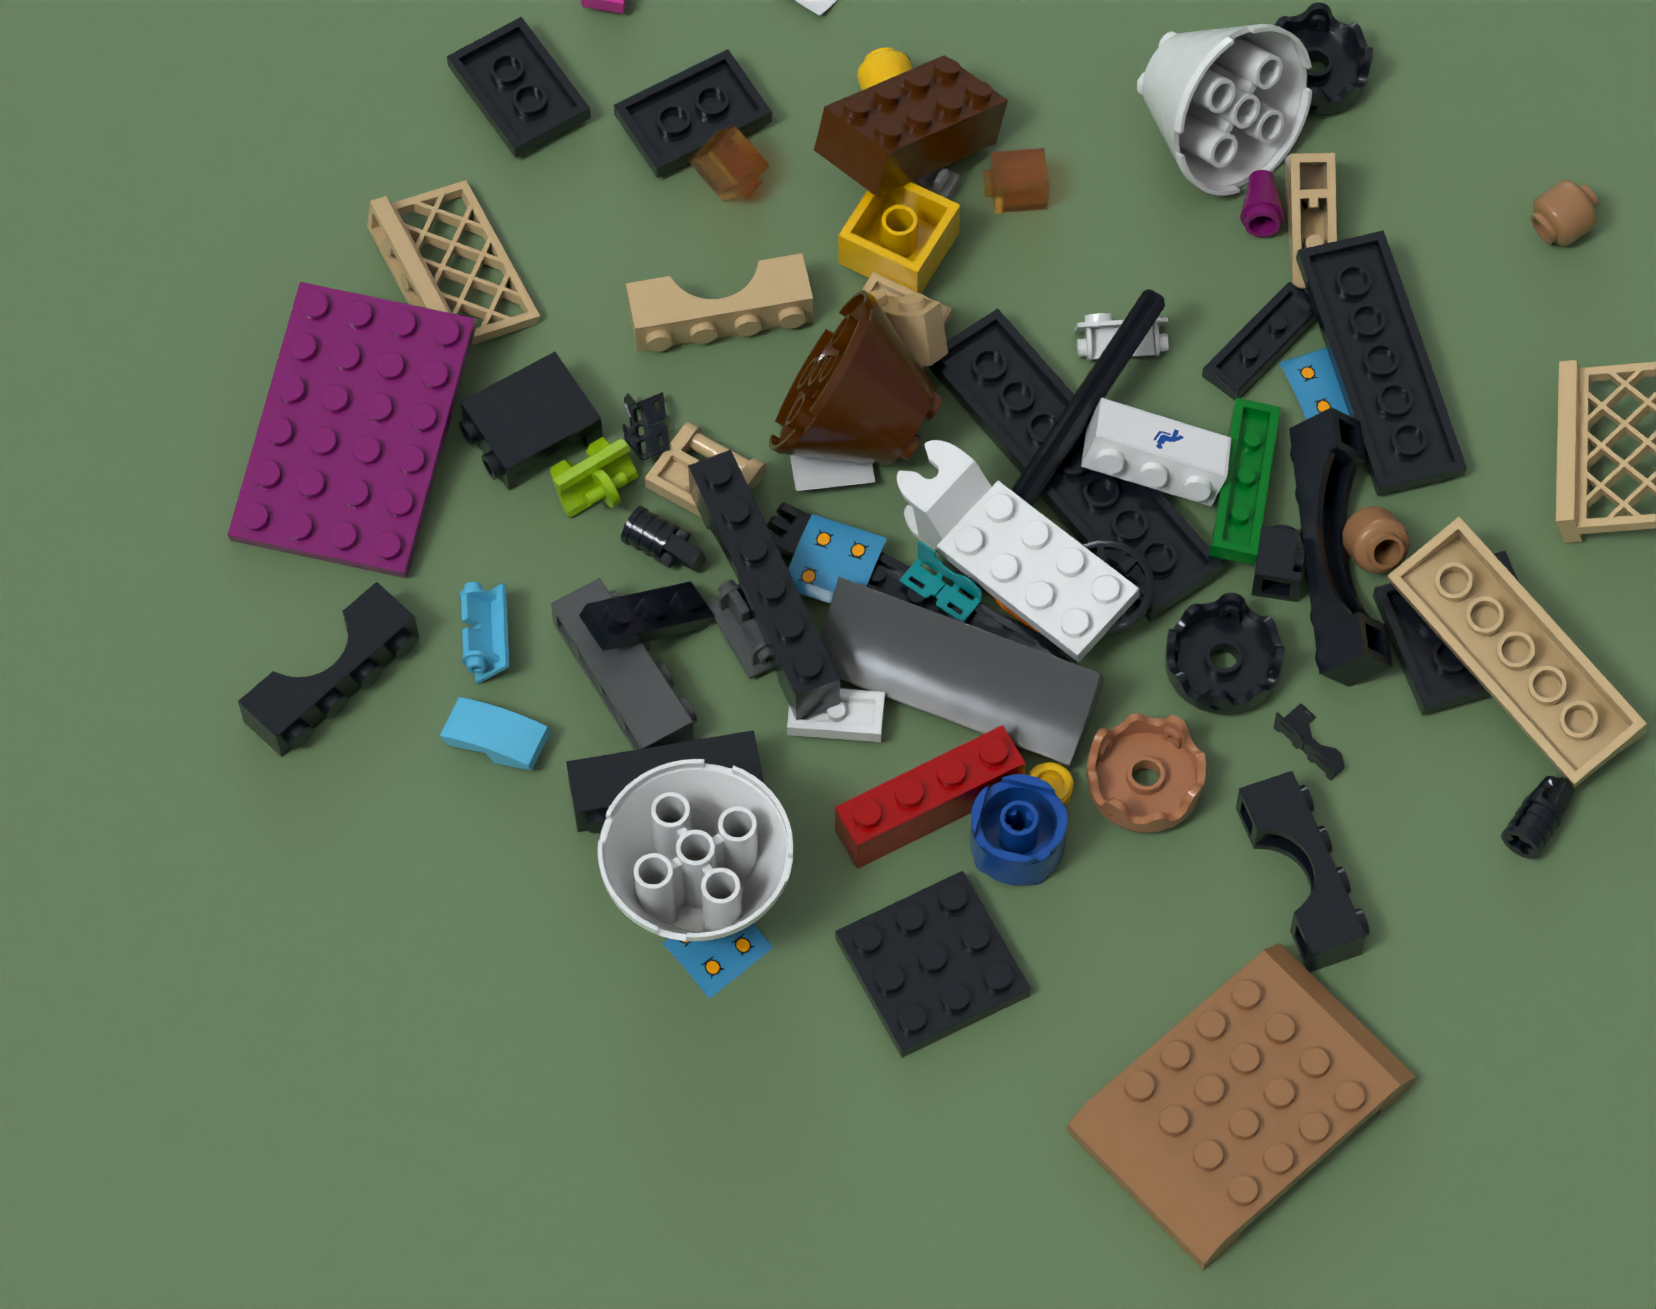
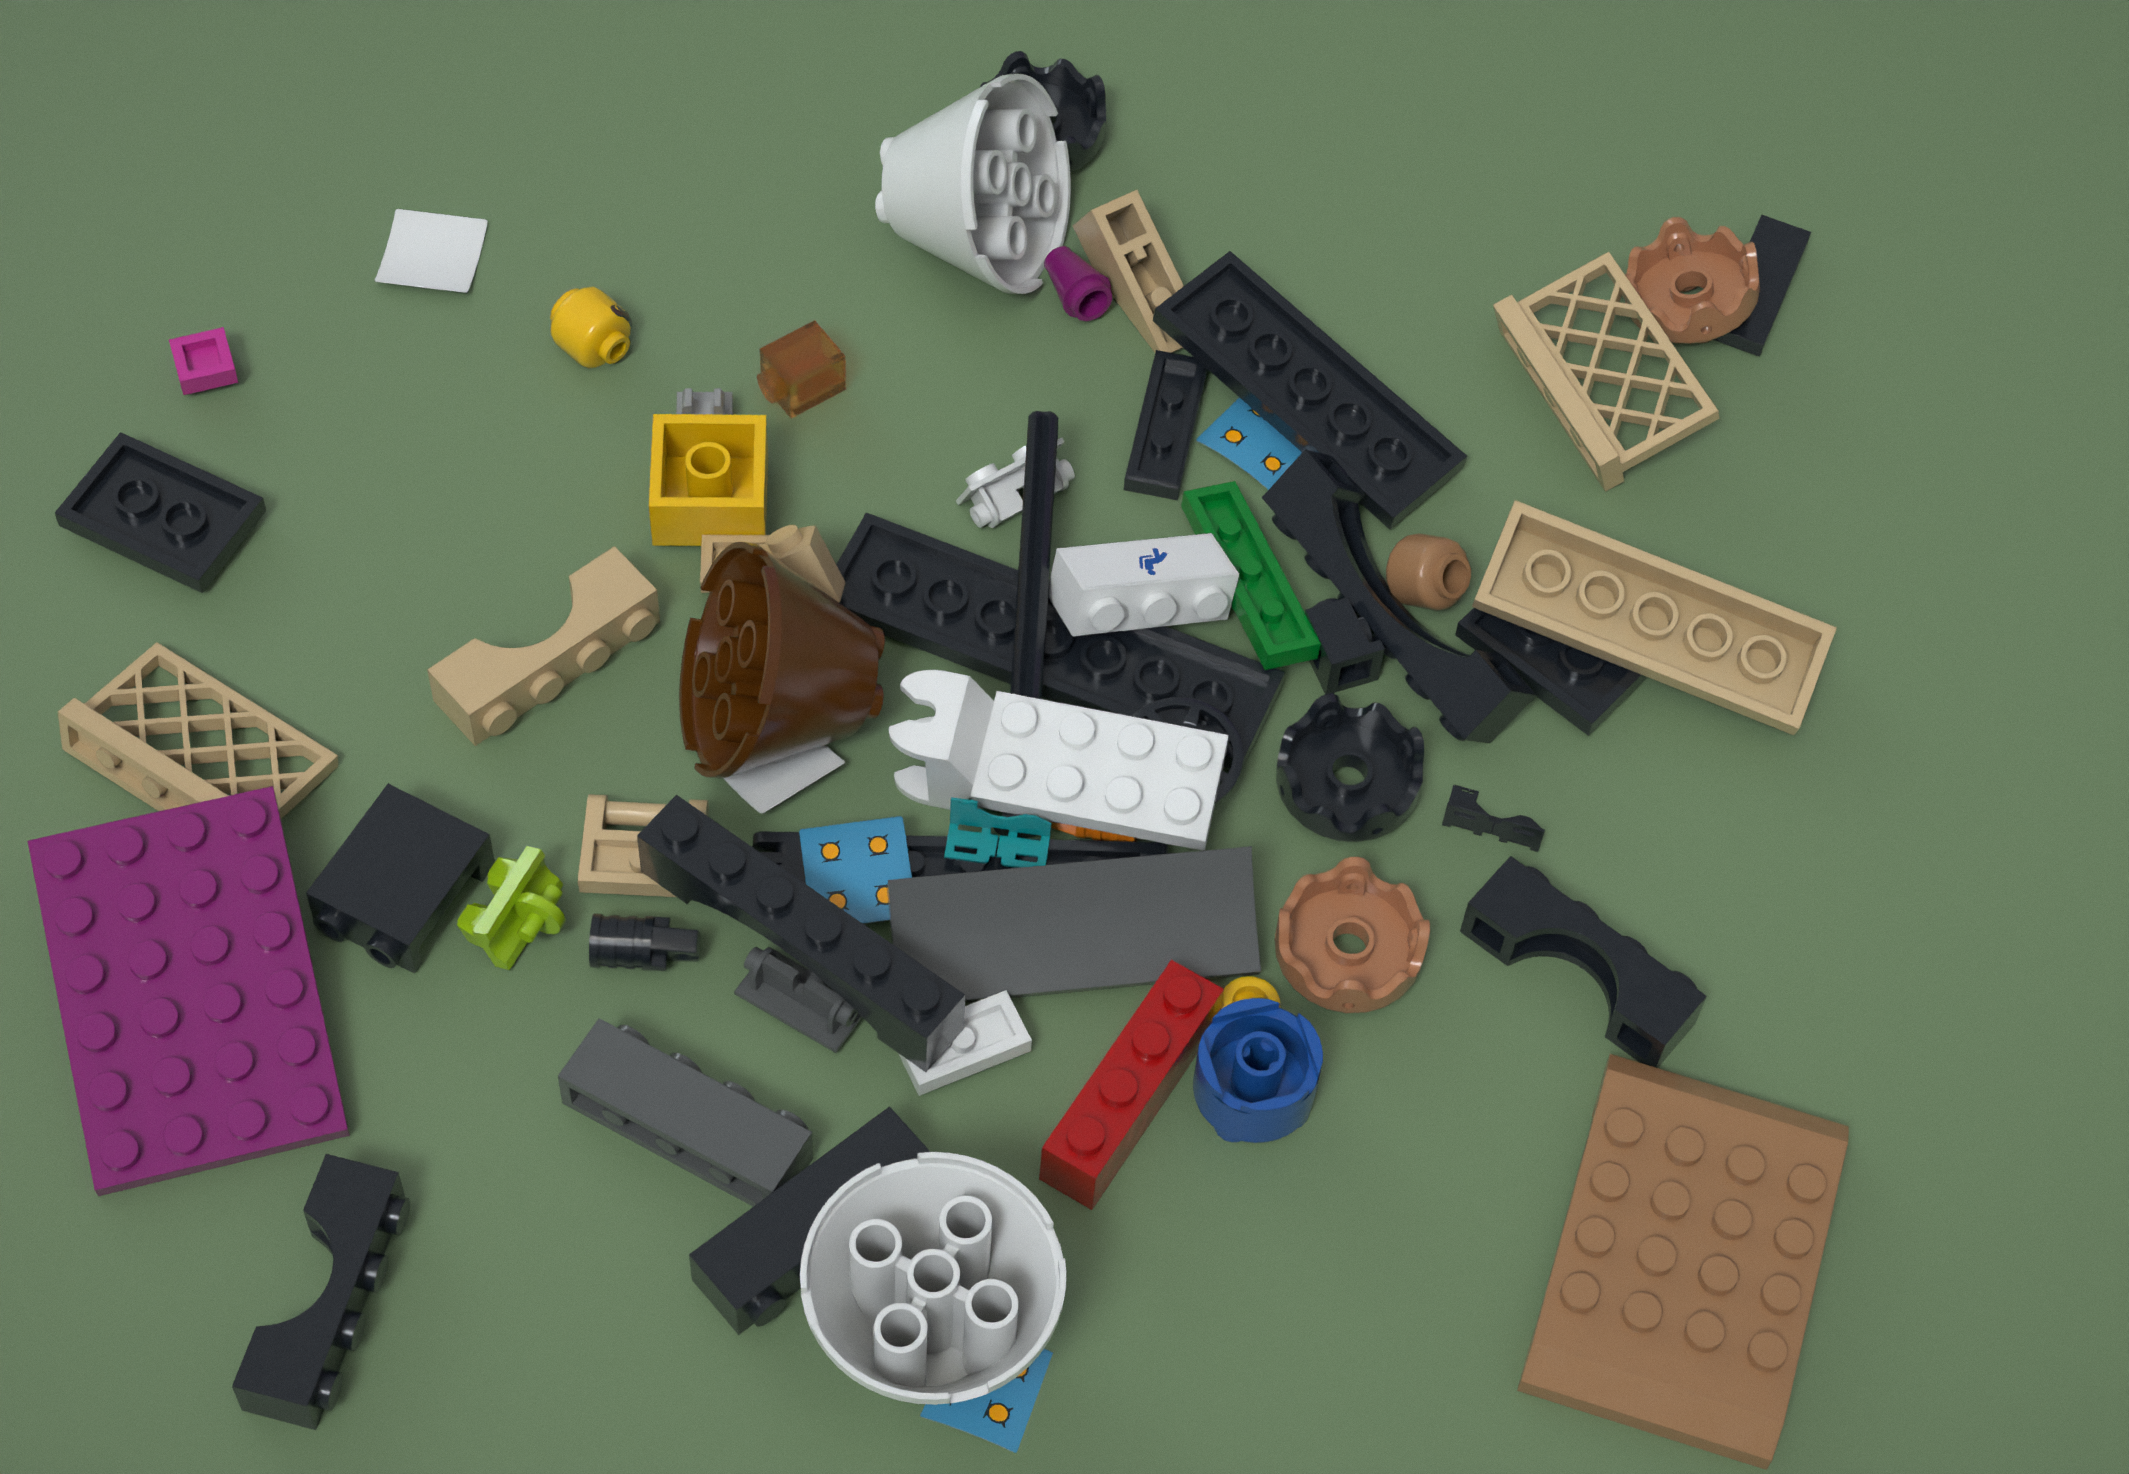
camera: 35 degrees left, 5 degrees down
(487, 642) = (493, 1147): medium azure hinge -> none
(499, 733) = (571, 1263): medium azure slope -> none
(646, 616) = (681, 1036): black plate -> none
(650, 423) = (546, 819): black piece -> none
(687, 109) = (386, 454): black plate -> none
(730, 164) = (467, 488): clear orange brick -> none
(910, 125) = (657, 354): reddish brown brick -> none
(932, 964) = (1248, 1276): black plate -> none
(1538, 817) = (1780, 783): black hinge -> none
(1564, 213) = (1392, 160): medium nougat head -> none

